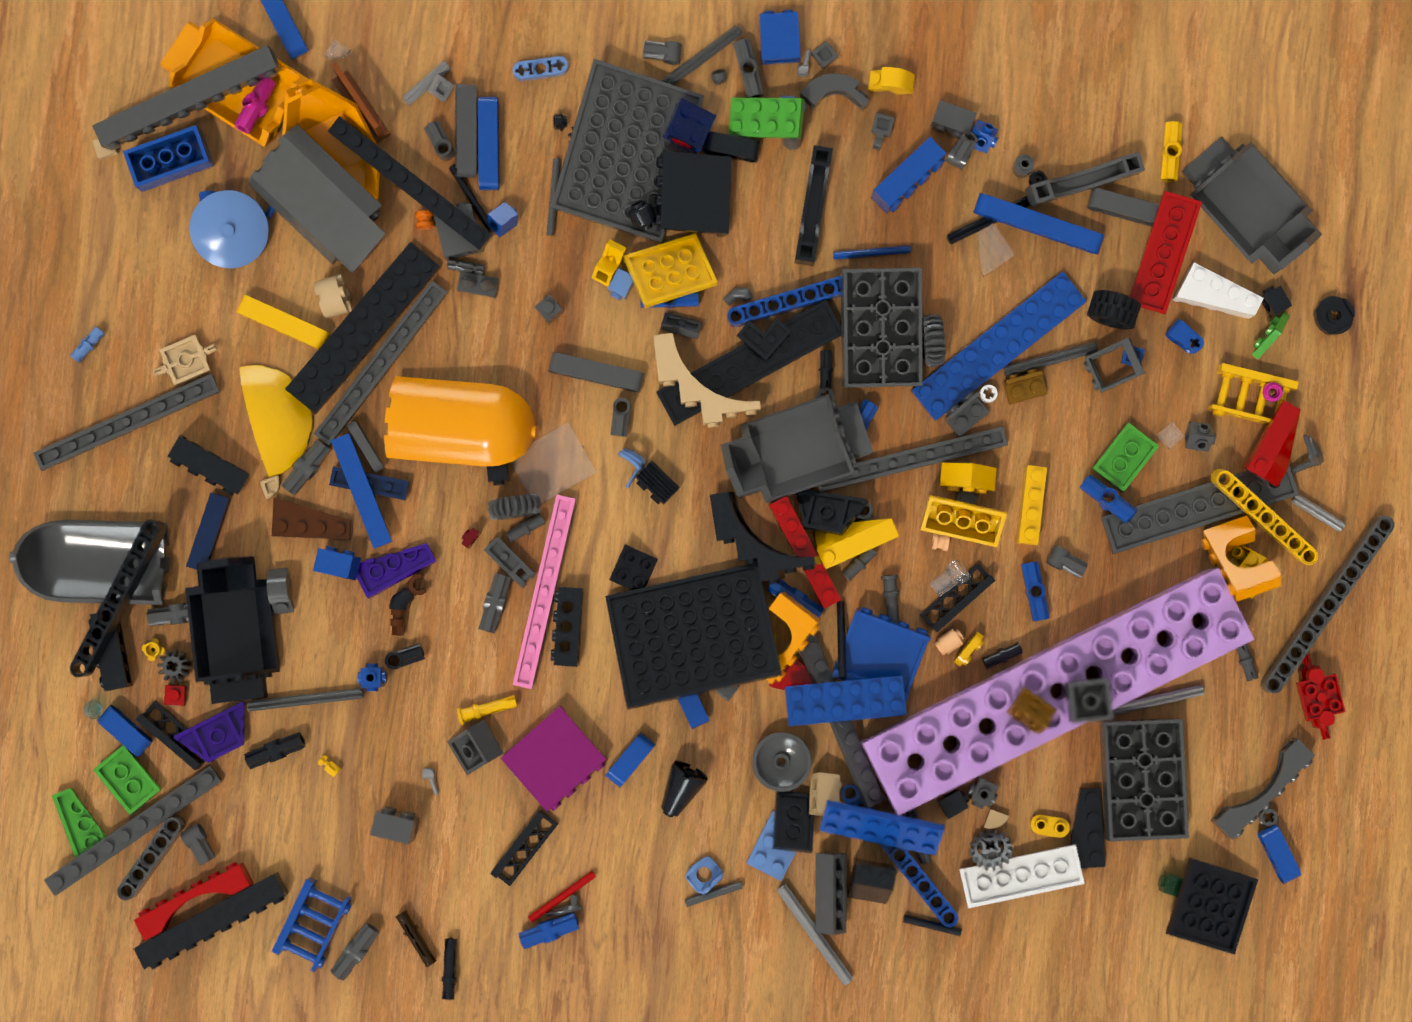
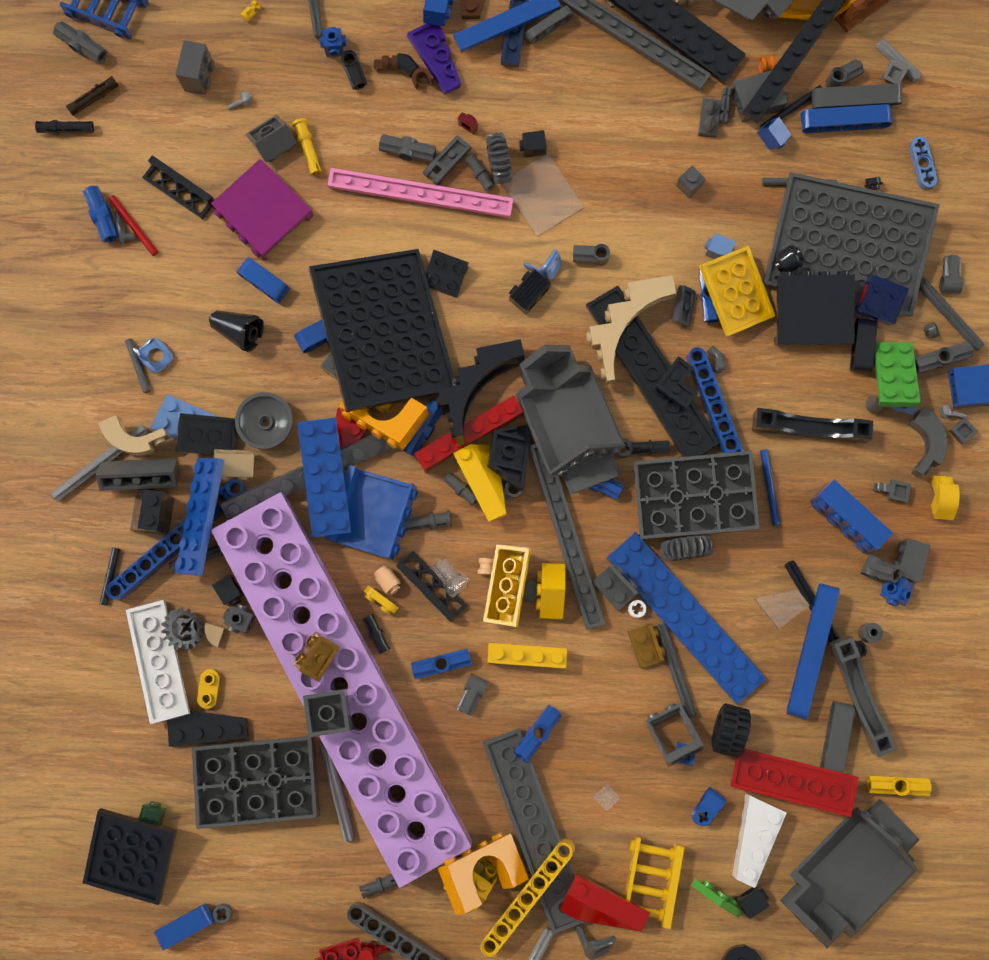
camera: 85 degrees right, 5 degrees down
(457, 422) = (576, 102): light orange panel -> none
(571, 657) = (415, 222): black brick -> none
(596, 372) = (633, 229): dark grey beam -> none
(609, 262) = (741, 234): yellow brick -> none
(797, 907) = (116, 434): none -> tan arch
(841, 639) = (386, 473): black bar -> none
(1125, 457) = (581, 750): bright green plate -> none
(1199, 436) = (606, 826): dark grey brick -> none
(1278, 392) = (655, 907): dark pink plate -> none
(1290, 761) = (279, 936): dark grey arch -> none

